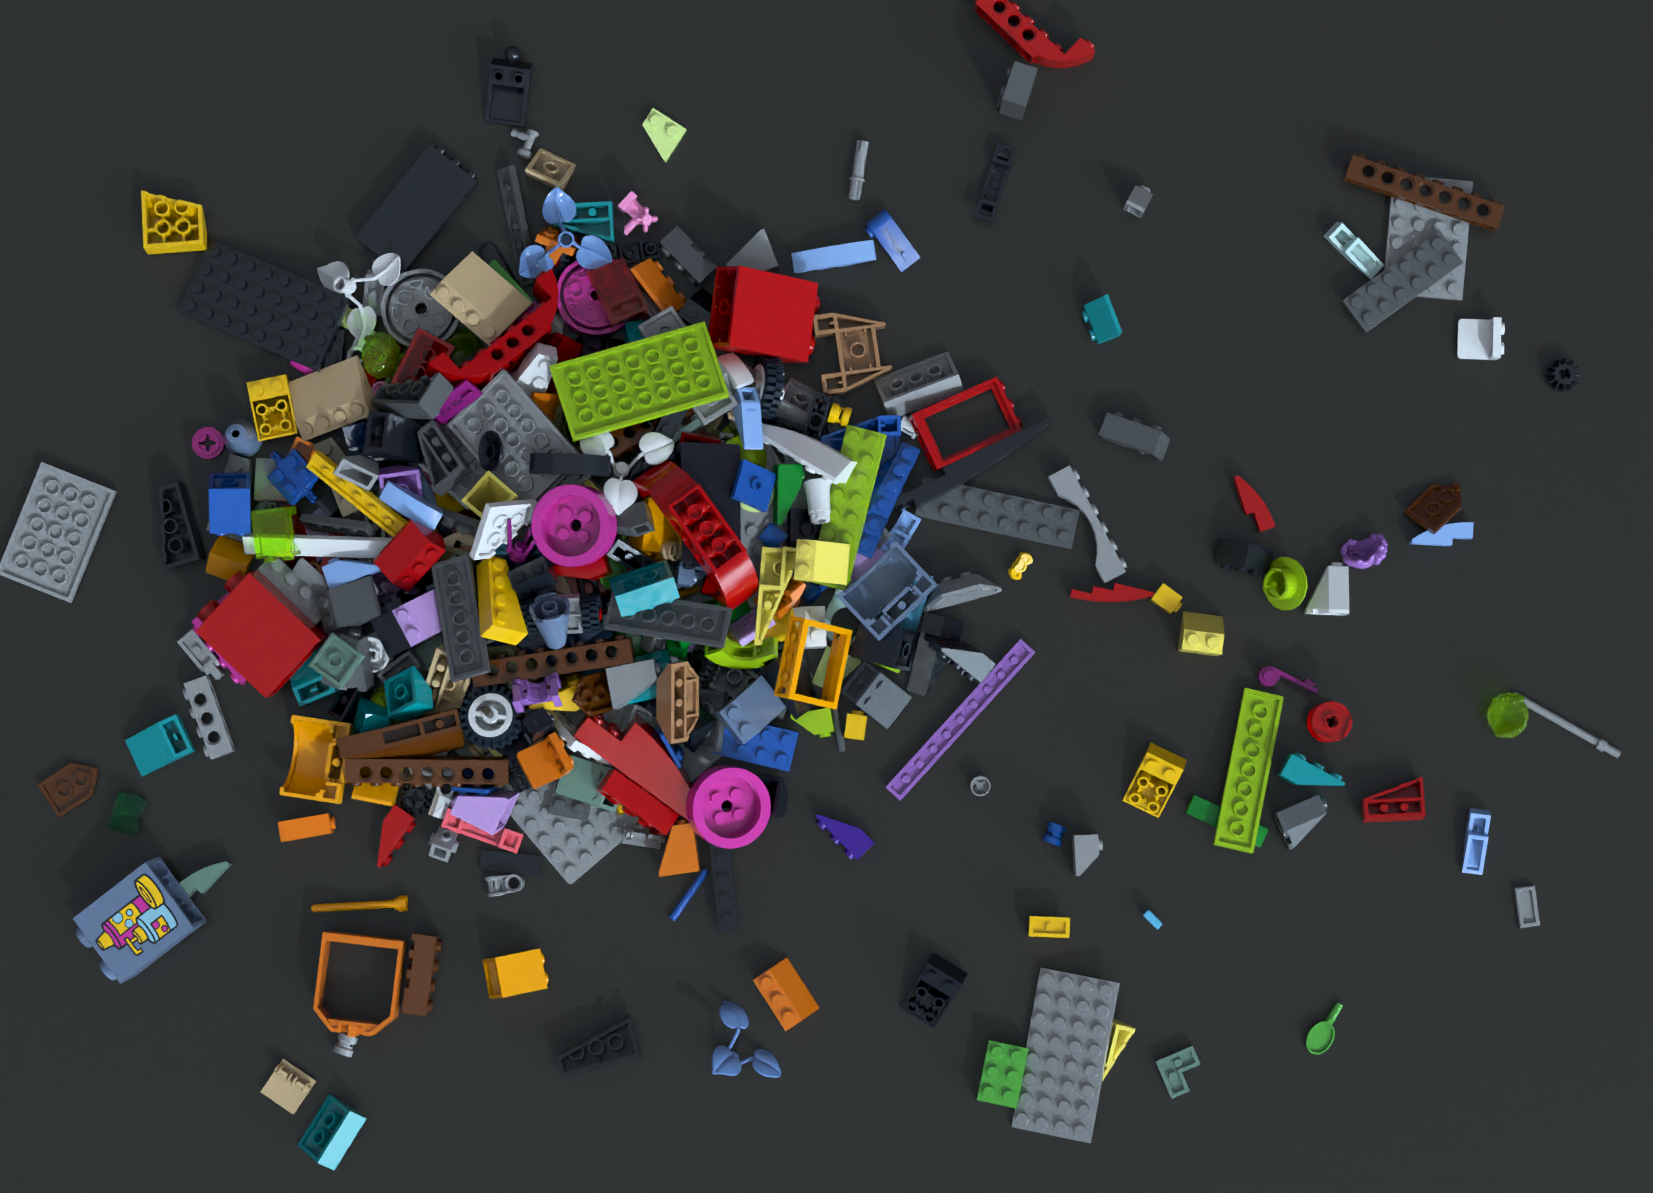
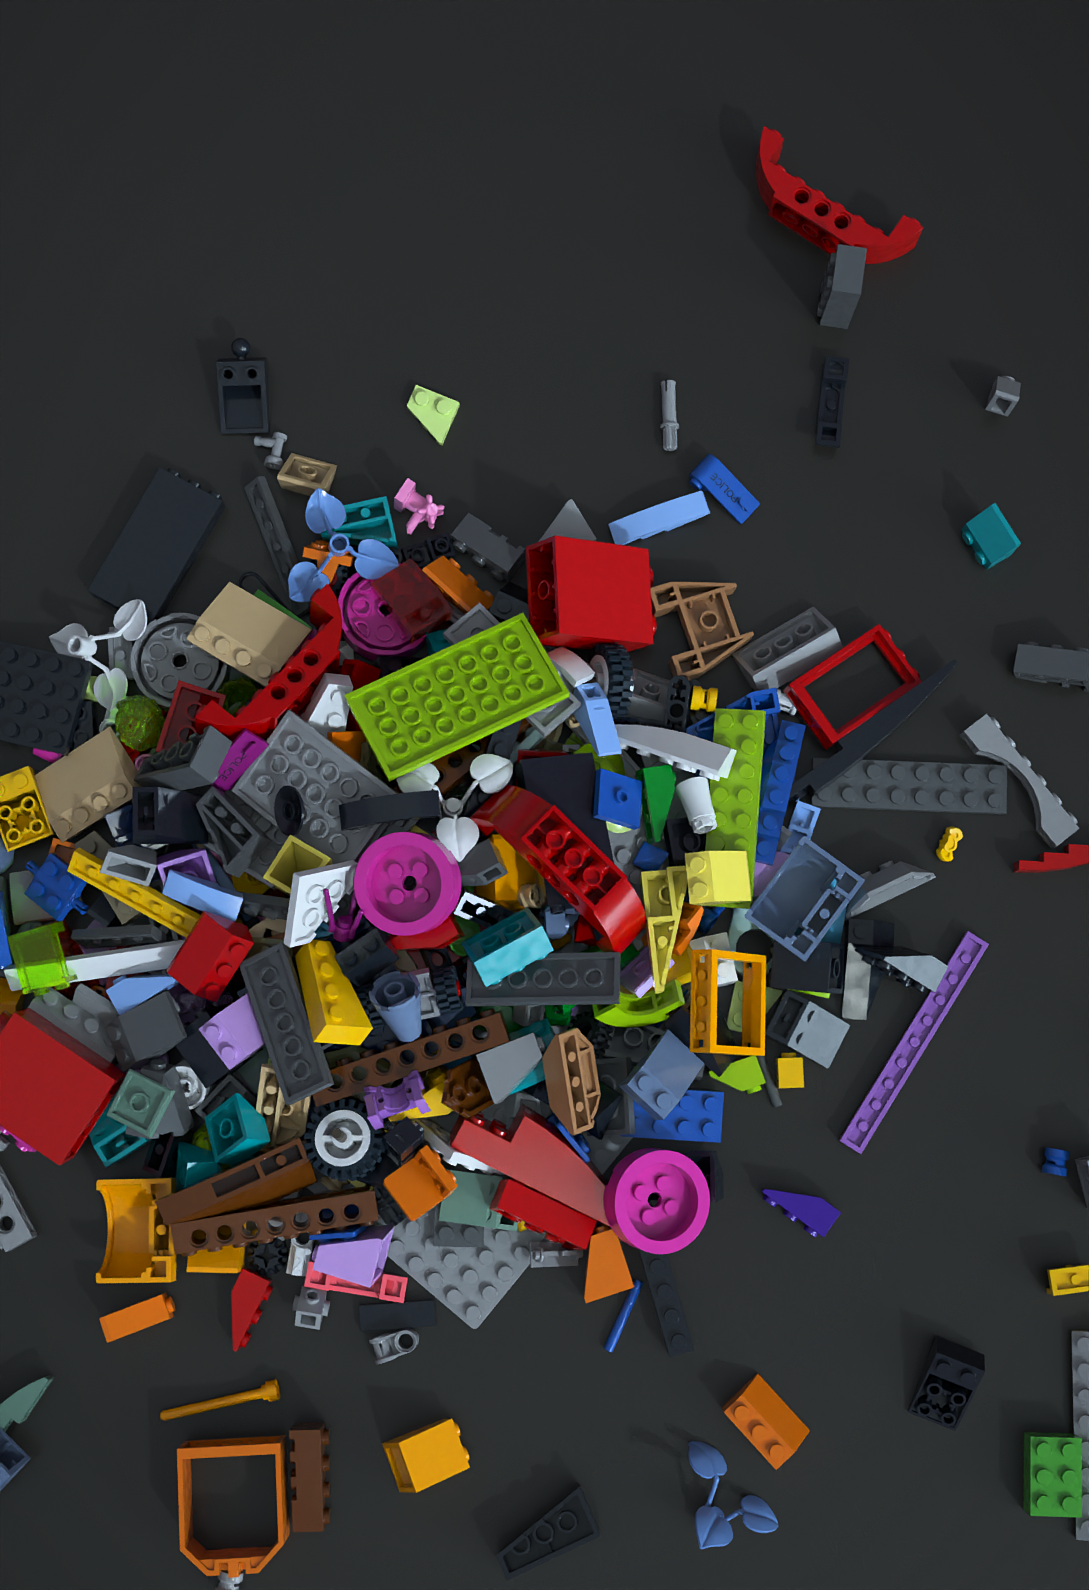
camera: 15 degrees left, 5 degrees down
(980, 786) = (957, 1121): light grey wheel -> none

